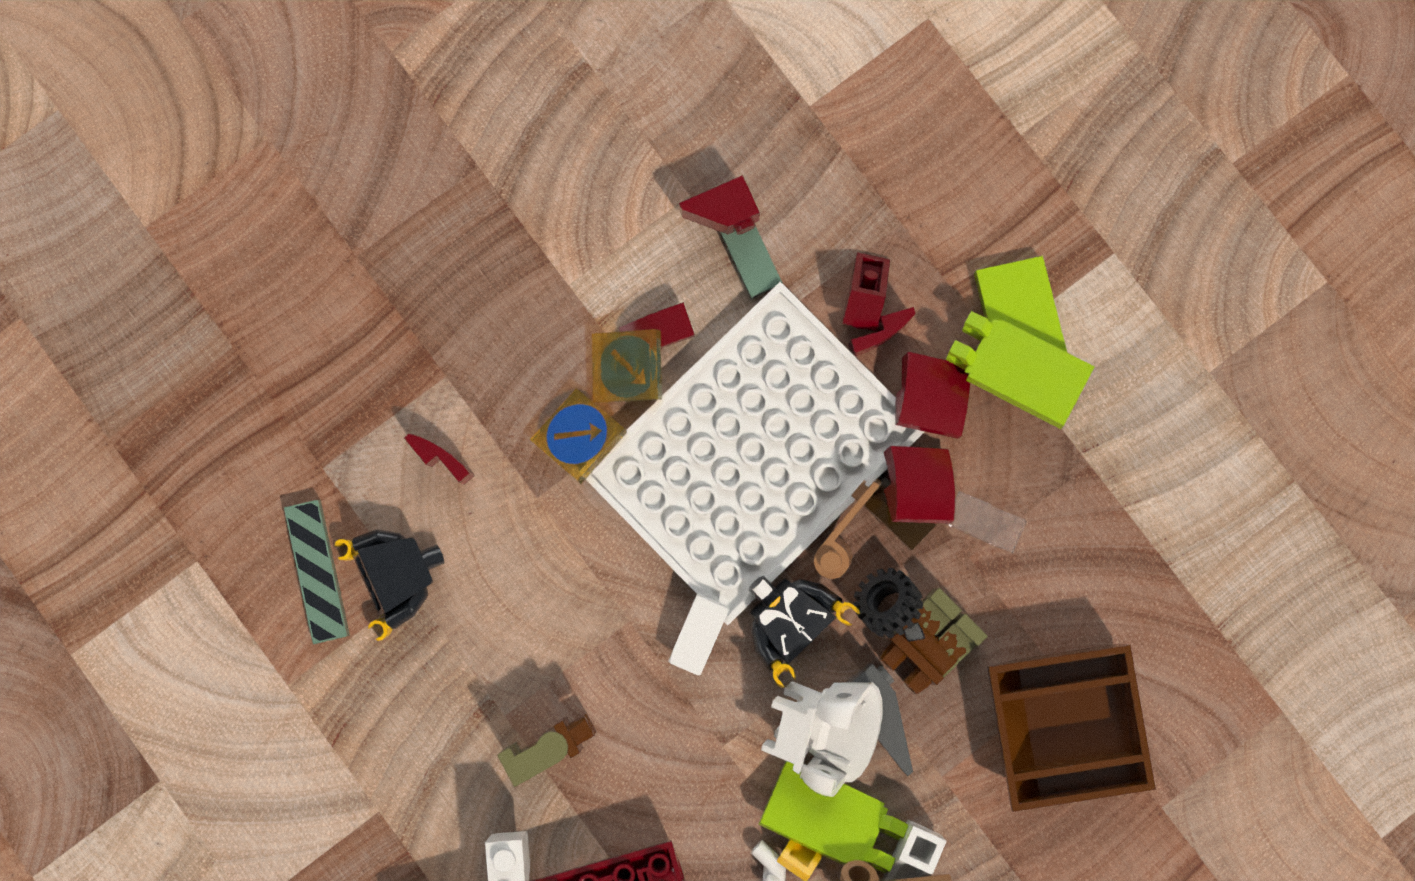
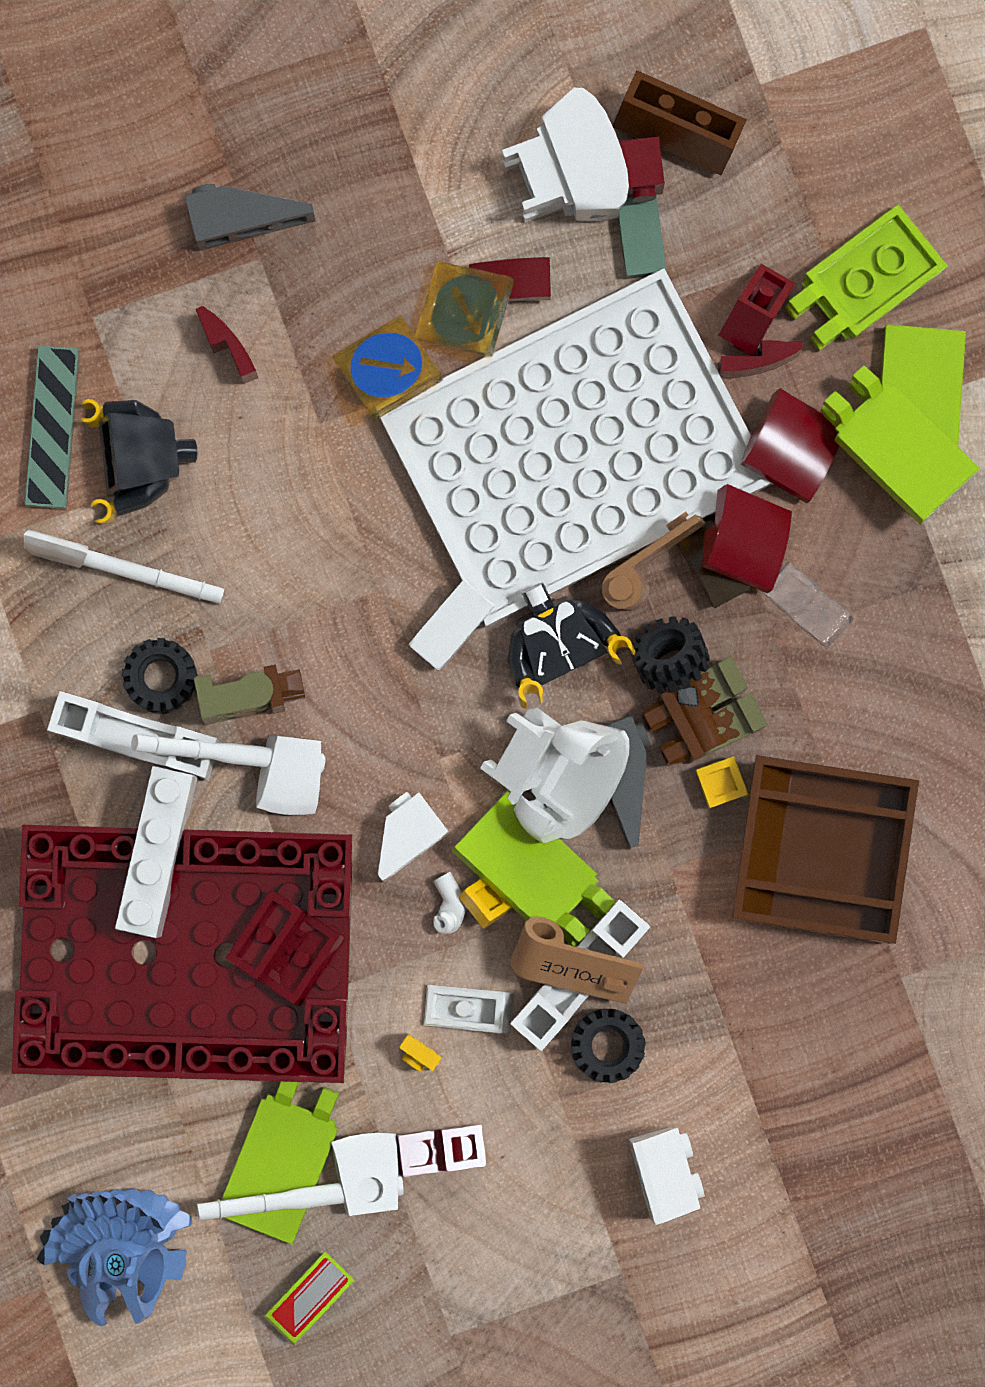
camera: 10 degrees right, 0 degrees up
(370, 673) = (78, 555): none -> white piece
(411, 348) = (235, 214): none -> dark grey slope
(448, 758) = (145, 655): none -> black tyre
(450, 811) = (114, 729): none -> white arch
(600, 799) = (287, 773): none -> white piece
(678, 217) = (572, 162): none -> white piece
(718, 820) = (408, 833): none -> white slope
(758, 156) = (681, 121): none -> reddish brown brick
(948, 236) = (867, 277): none -> lime tile
(963, 693) = (721, 782): none -> yellow plate

